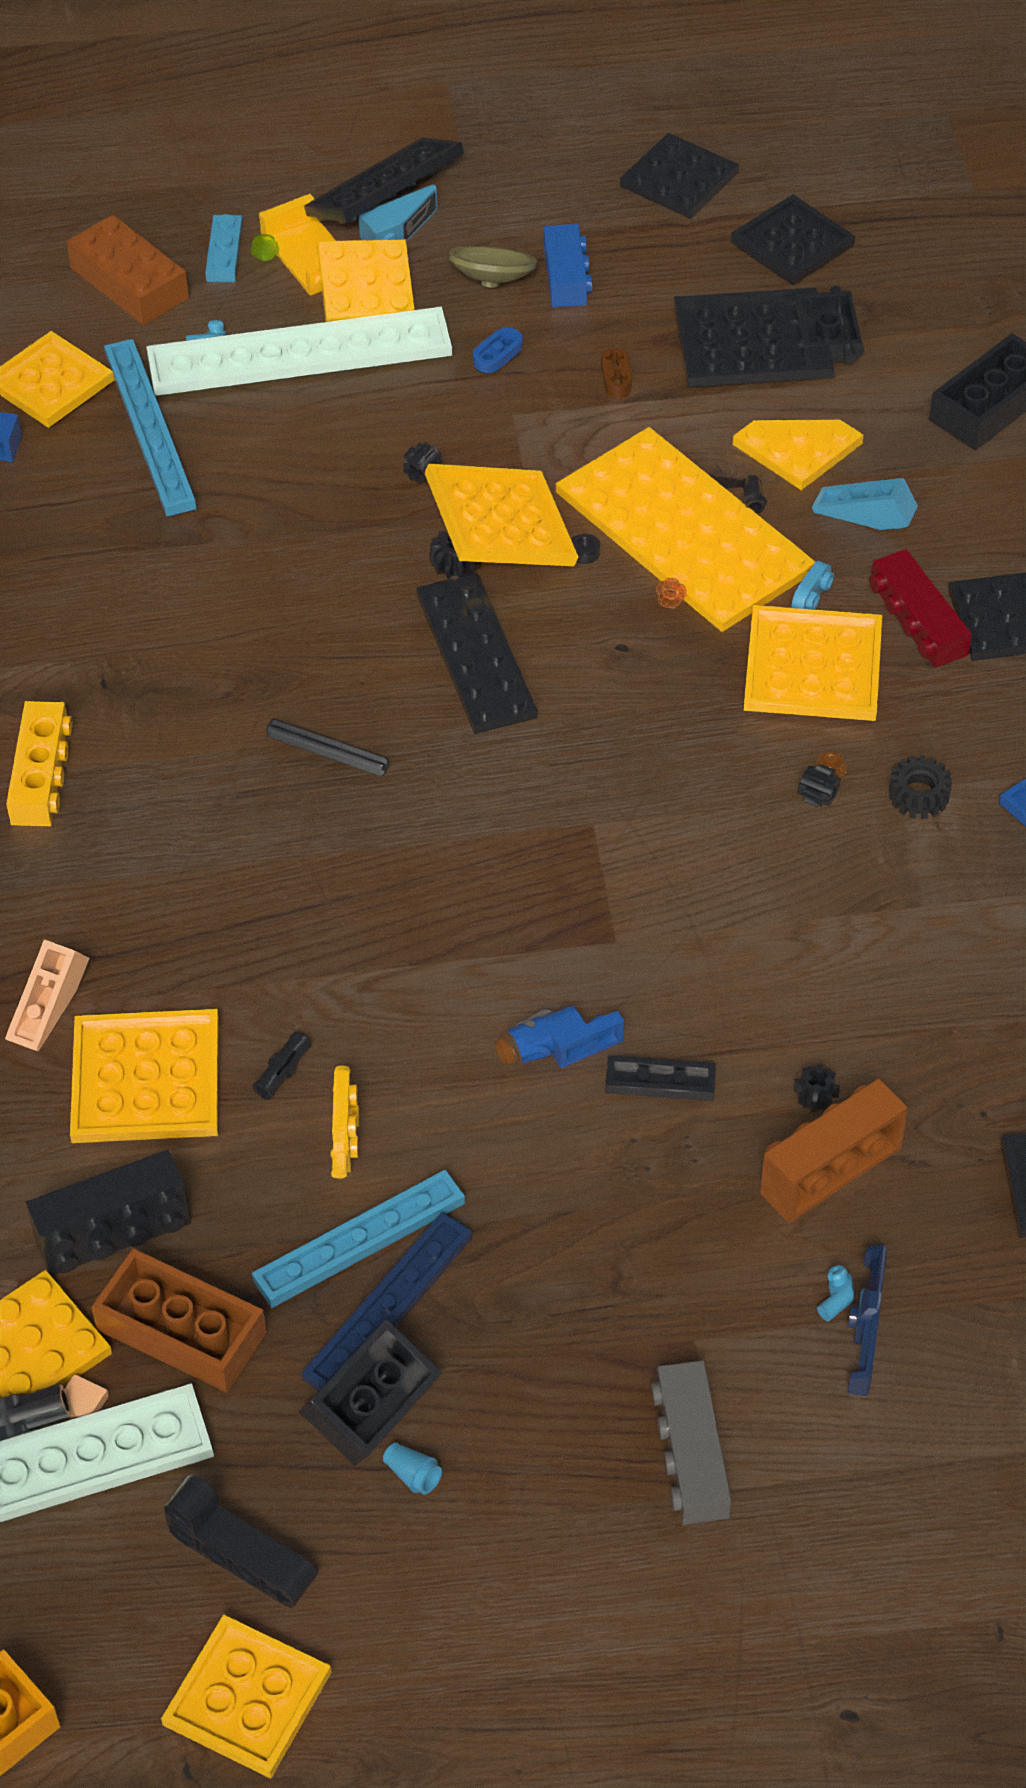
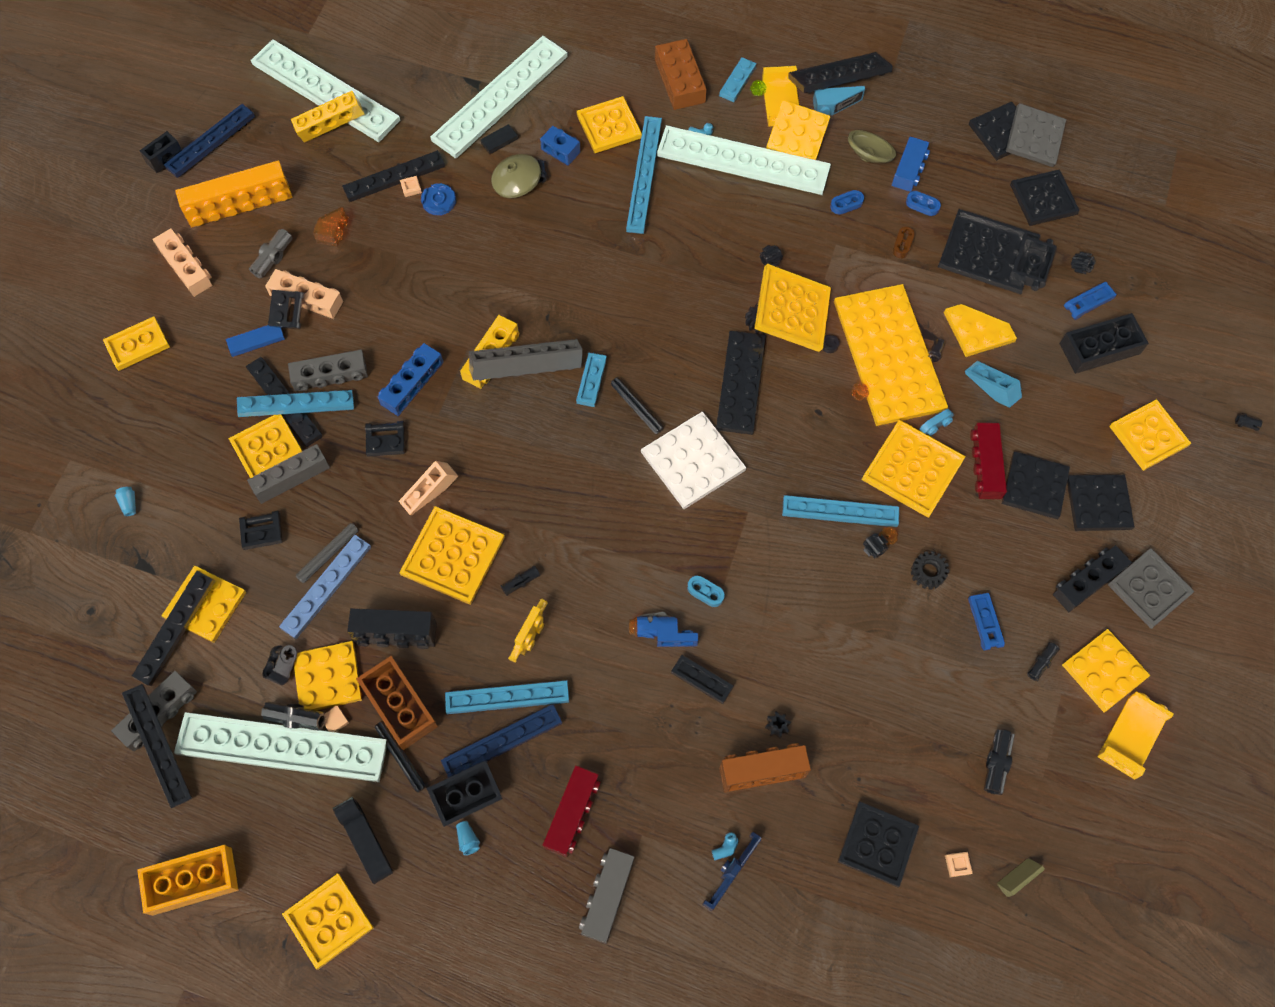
camera: 25 degrees right, 15 degrees up
(109, 744) = (525, 359): none -> dark grey brick
(230, 1403) = (400, 757): none -> black axle
(232, 739) = (591, 379): none -> dark azure plate
(463, 787) = (693, 460): none -> white plate
(562, 1351) = (570, 812): none -> dark red brick
(593, 955) = (706, 591): none -> dark azure plate
(615, 310) = (923, 203): none -> blue plate
(732, 161) = (1036, 135): none -> dark grey plate
(736, 763) = (840, 511): none -> dark azure plate
(900, 300) = (1083, 262): none -> black gear
(940, 346) = (1090, 300): none -> blue plate

